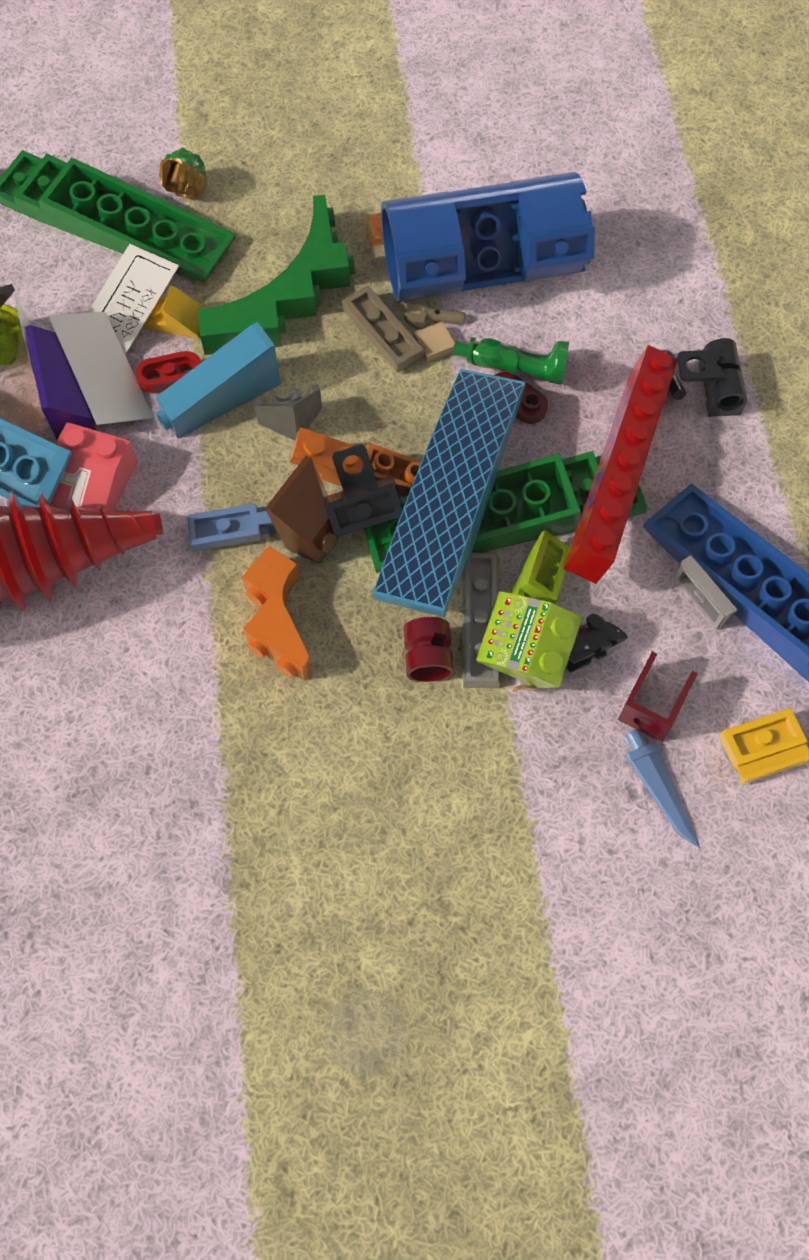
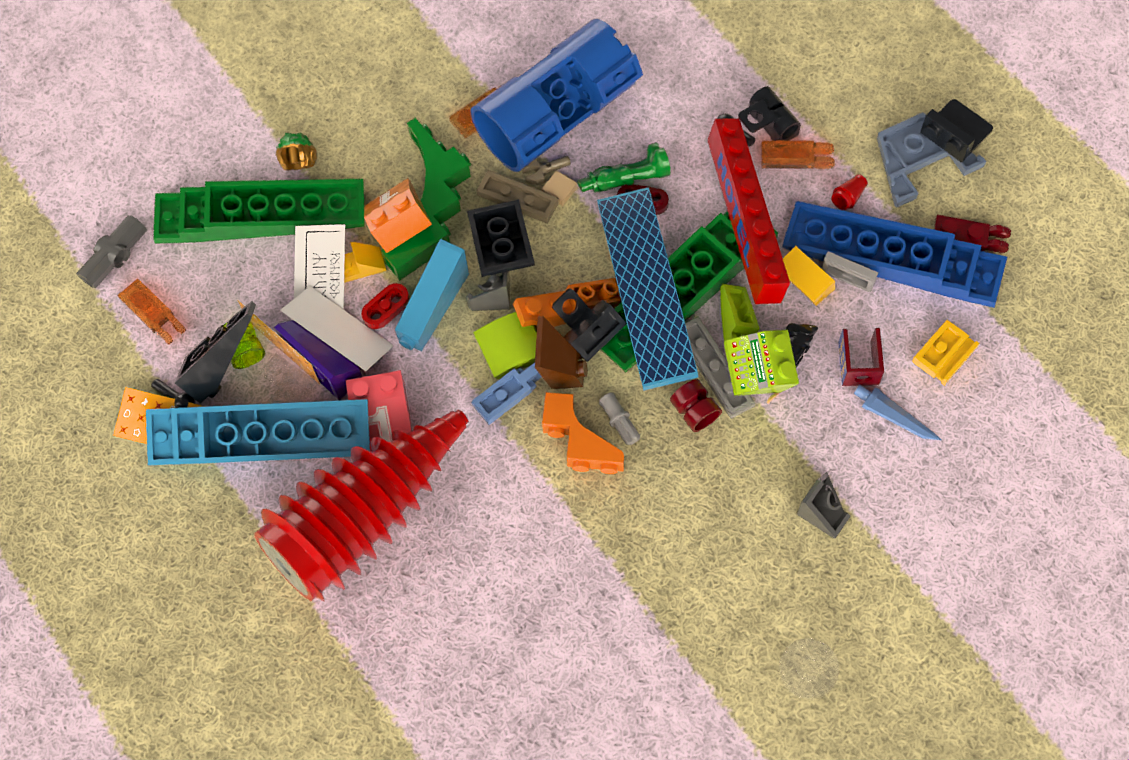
camera: 25 degrees left, 0 degrees up
(232, 281) = (396, 216): none -> orange slope
(261, 472) = (507, 344): none -> lime slope
(329, 357) = (500, 238): none -> black slope
(336, 619) = (619, 419): none -> light grey axle
(505, 847) = (823, 508): none -> dark grey slope
(649, 571) = (808, 276): none -> yellow hinge
(724, 433) = (796, 155): none -> clear orange hinge
(760, 504) = (849, 192): none -> red cone

